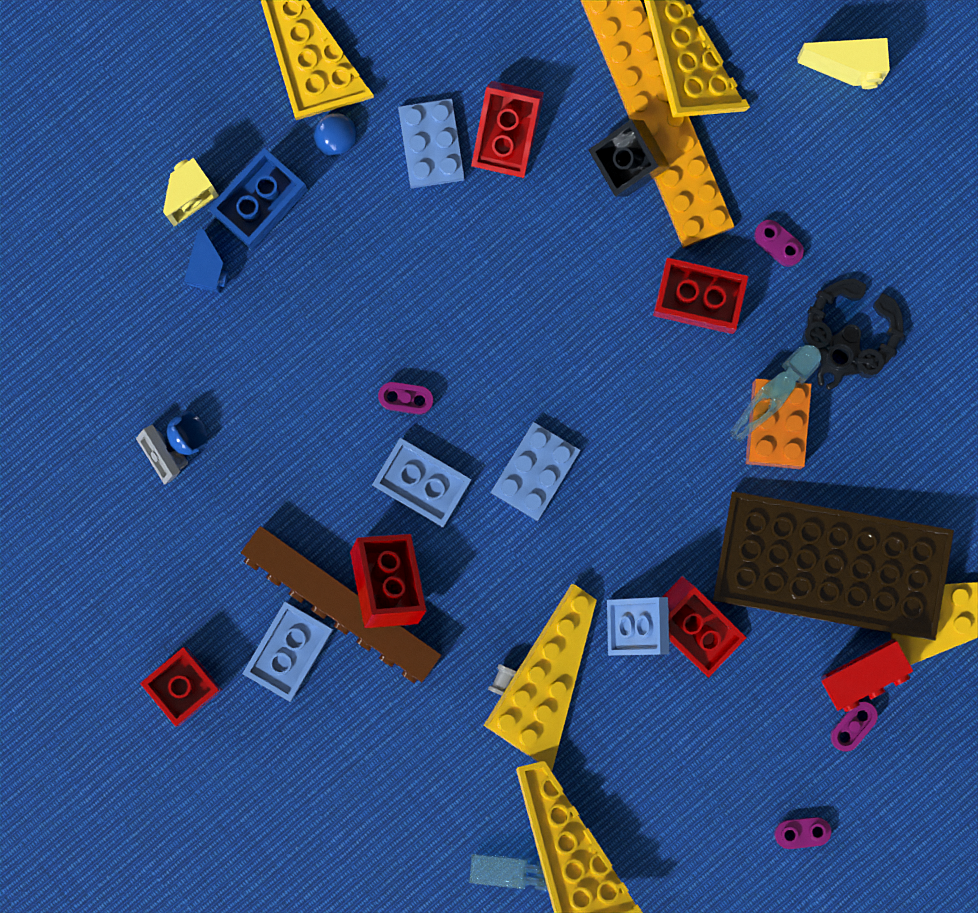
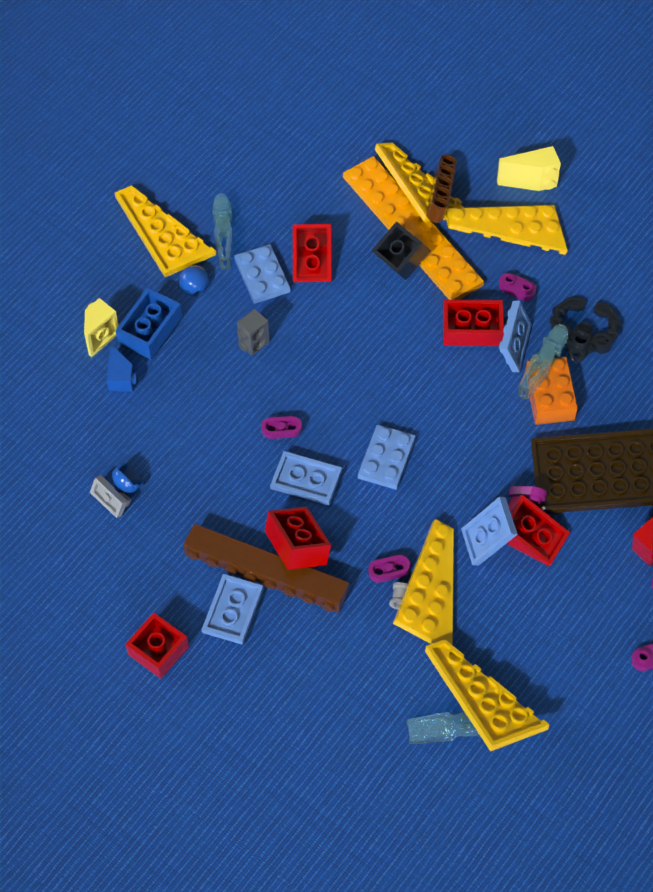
camera: 15 degrees left, 25 degrees down
(395, 32) = (222, 217): none -> clear light blue arm
(395, 248) = (253, 332): none -> dark grey brick
(499, 639) = (388, 568): none -> magenta plate
(697, 573) = (534, 494): none -> magenta plate
(717, 53) = (441, 188): none -> reddish brown beam
(752, 333) = (515, 336): none -> medium blue plate
(806, 145) = (512, 224): none -> yellow wing

